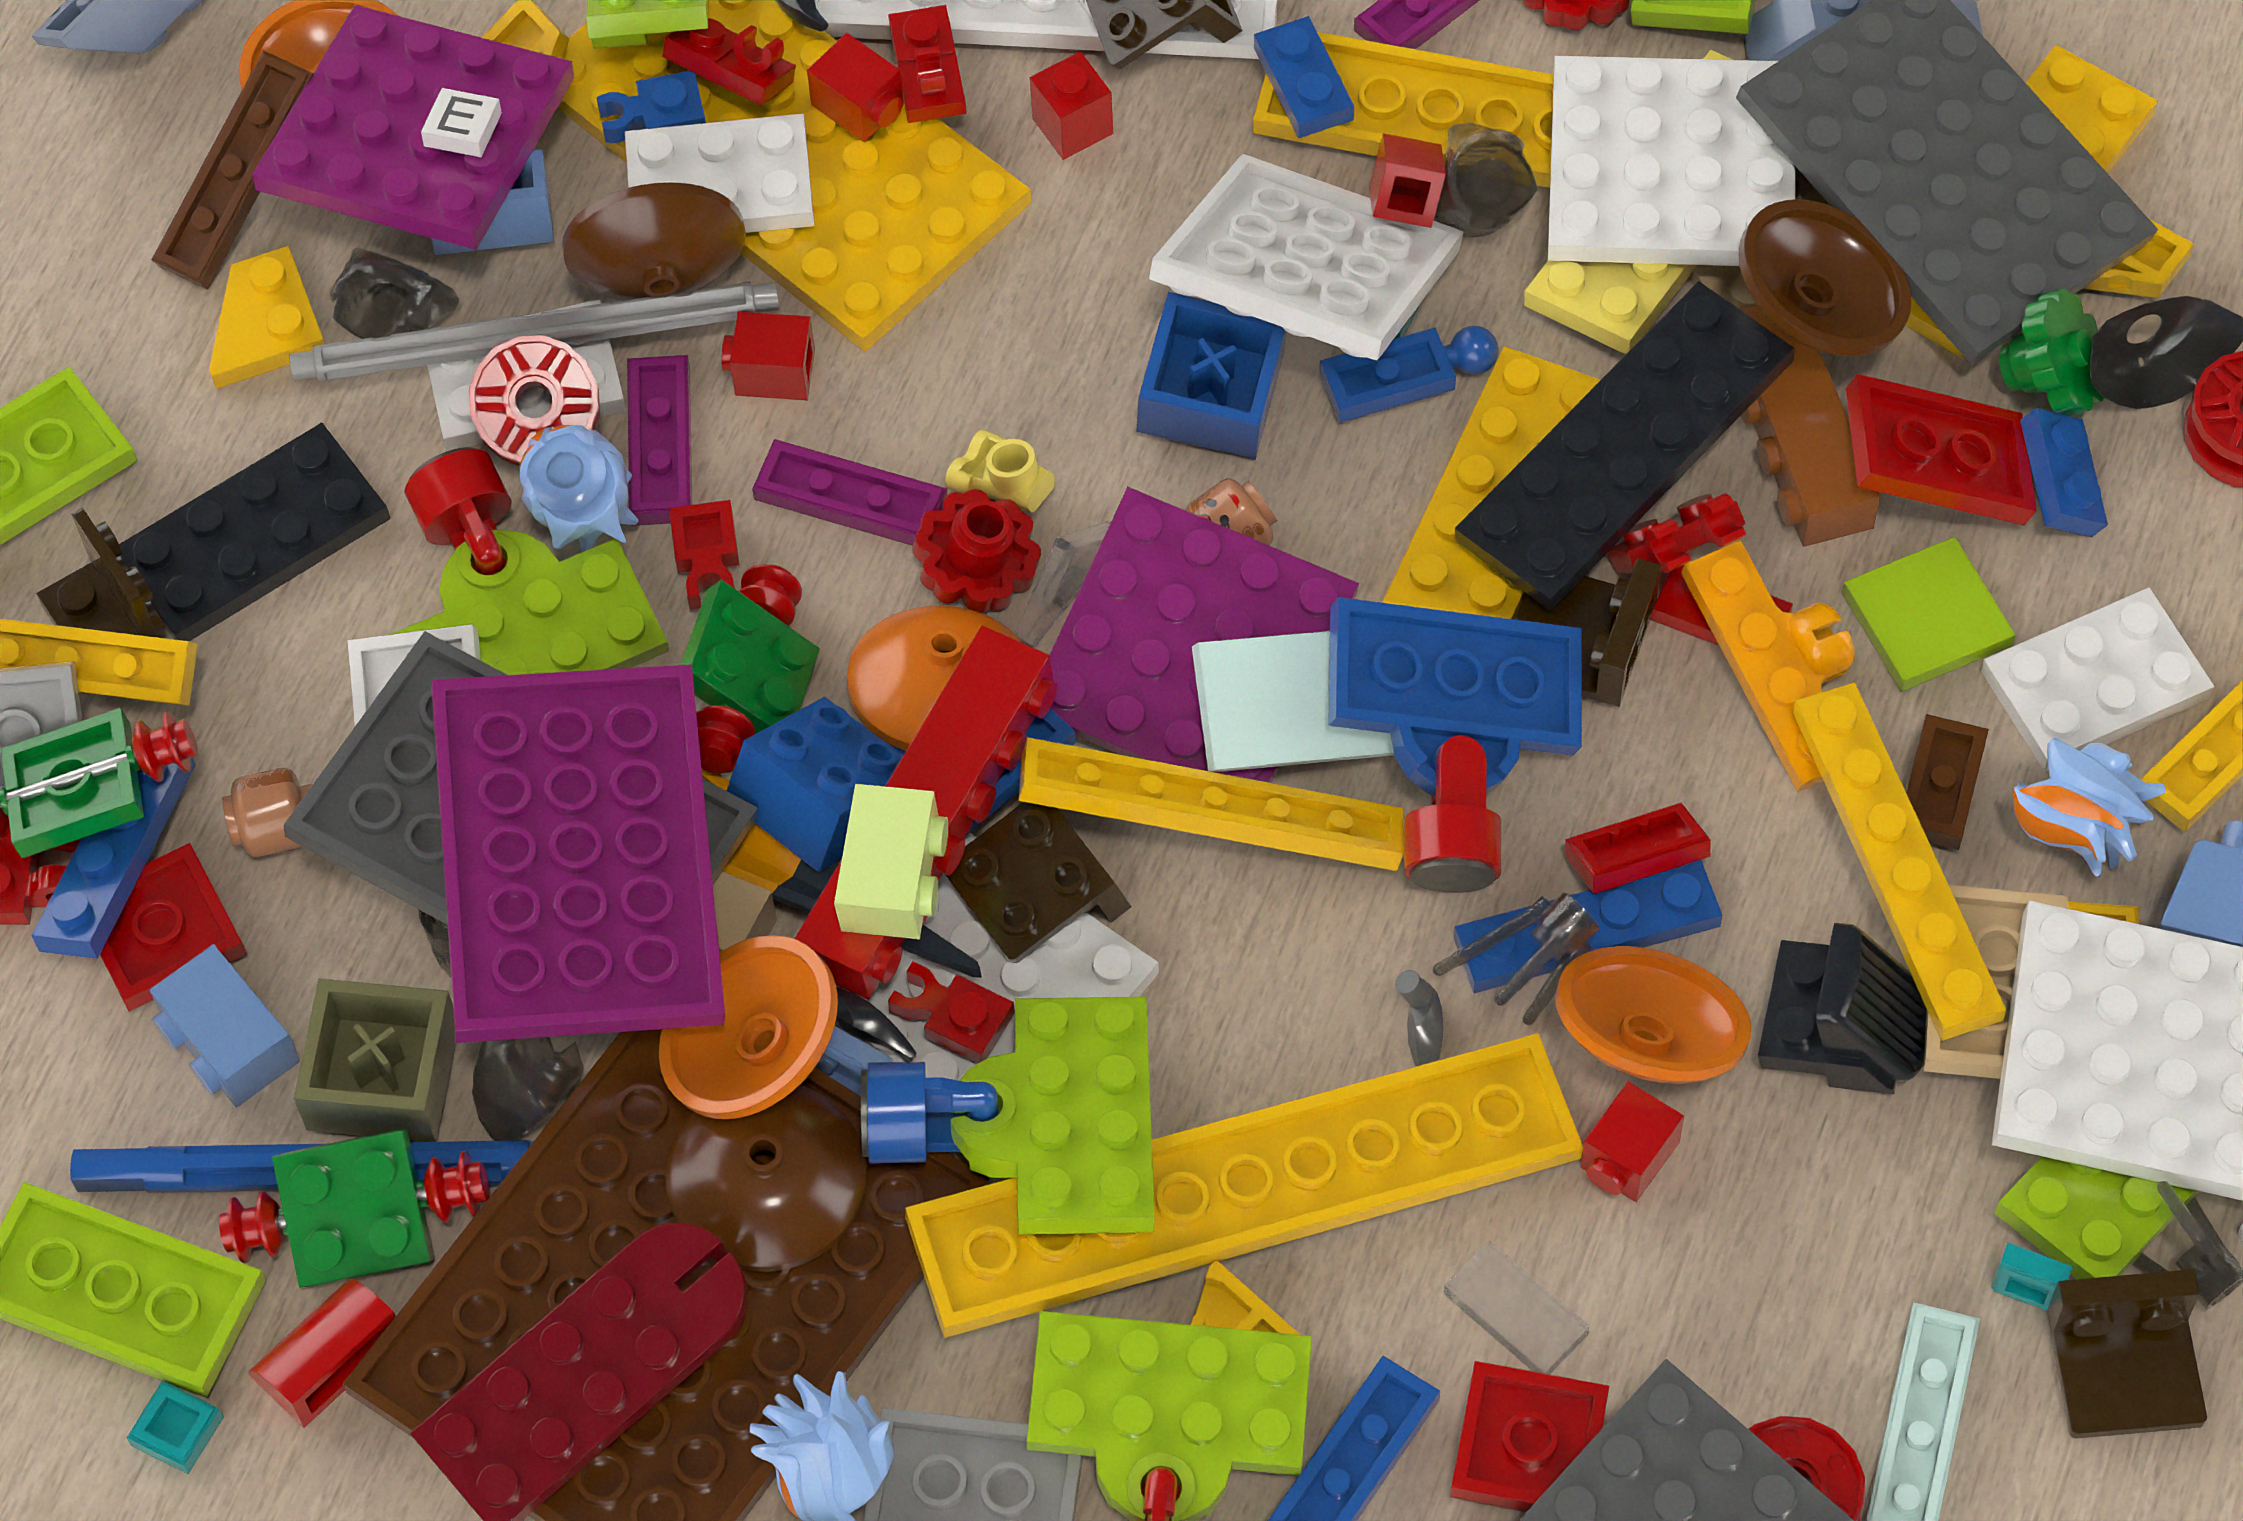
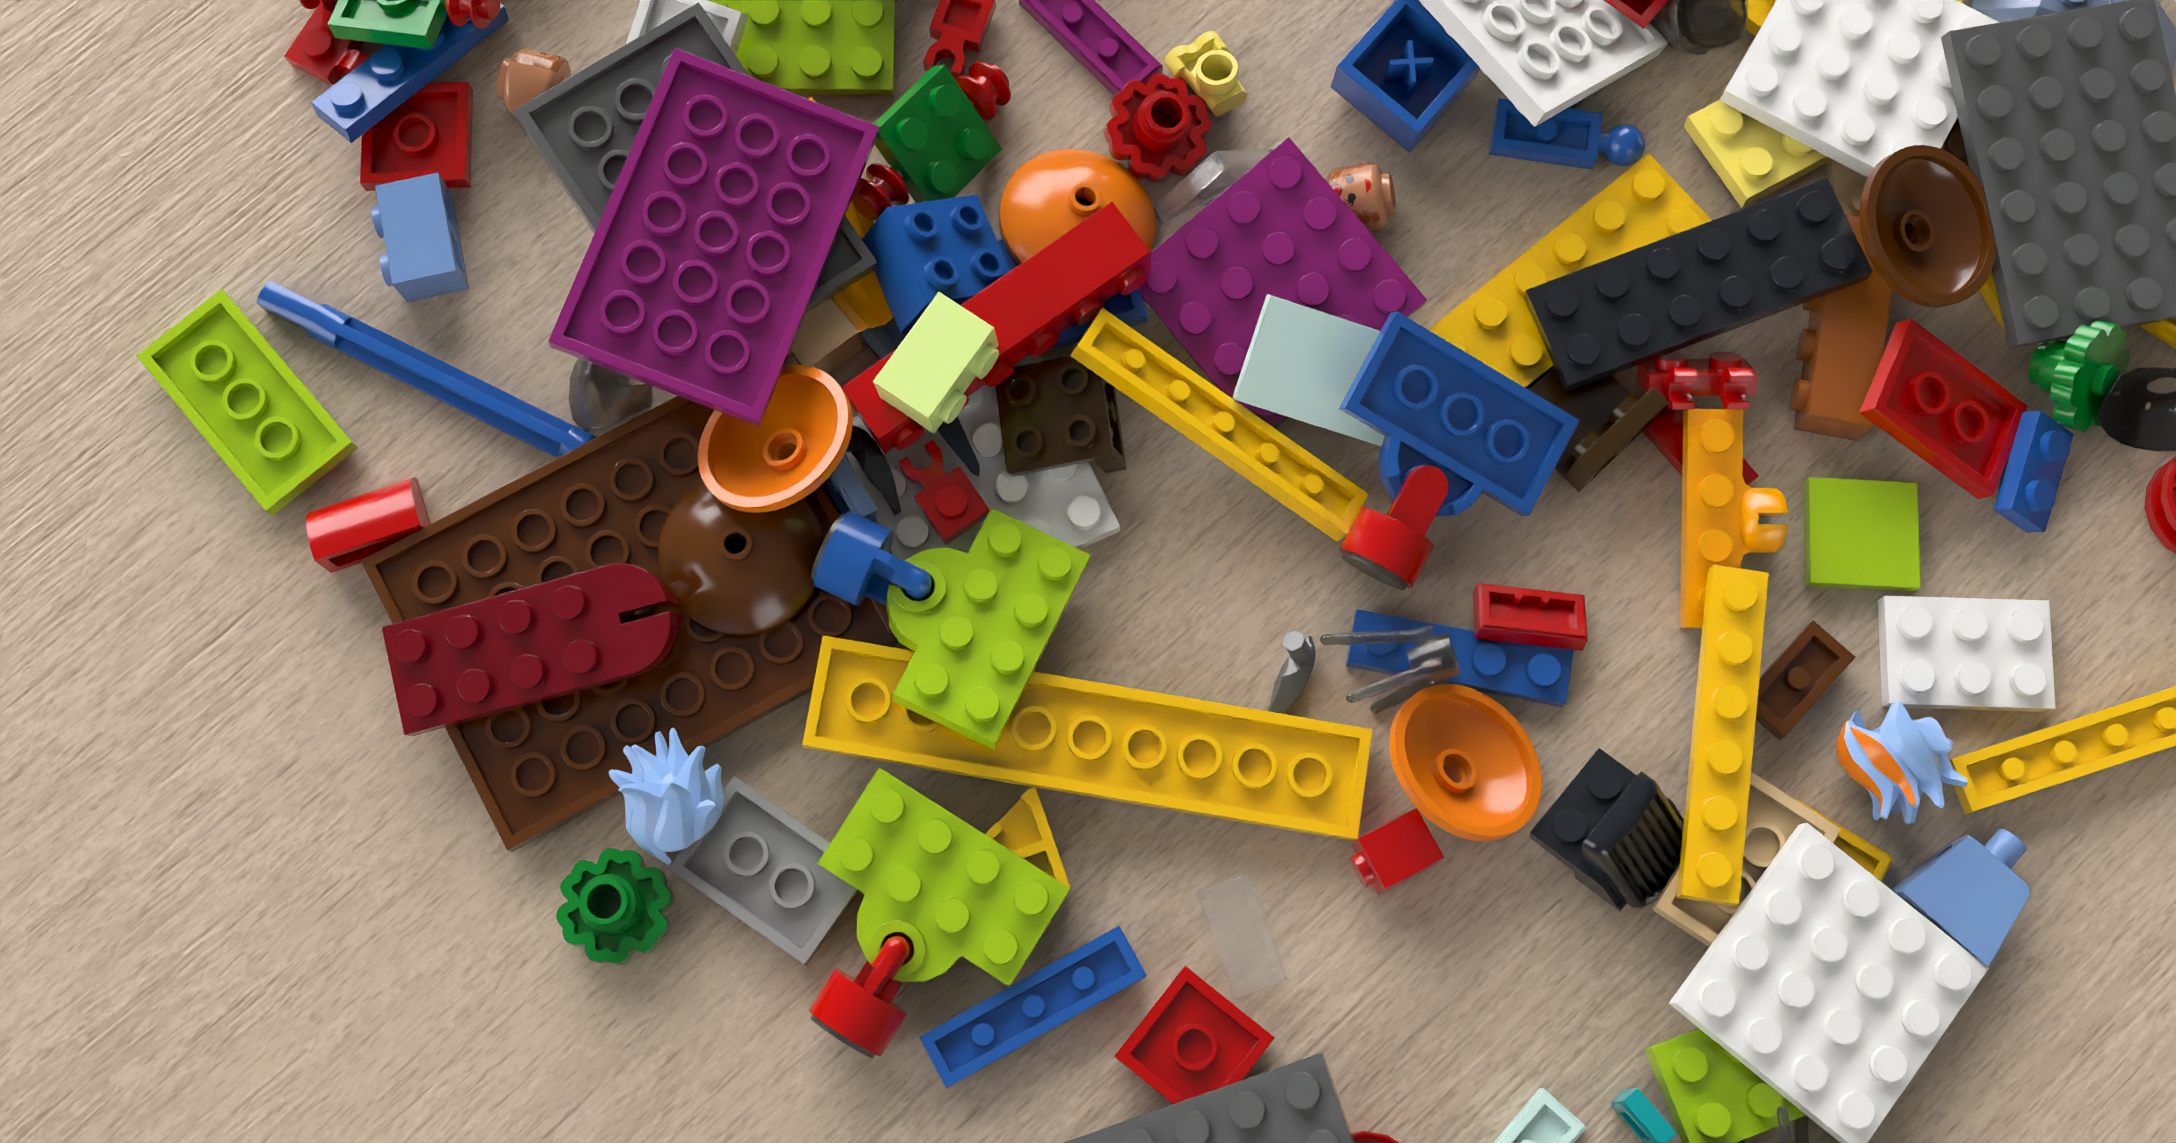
camera: 25 degrees right, 15 degrees up
(175, 1427) = (240, 527): teal tile -> none
(353, 1207) = (437, 427): green plate -> none
(376, 1059) = (503, 320): olive brick -> none

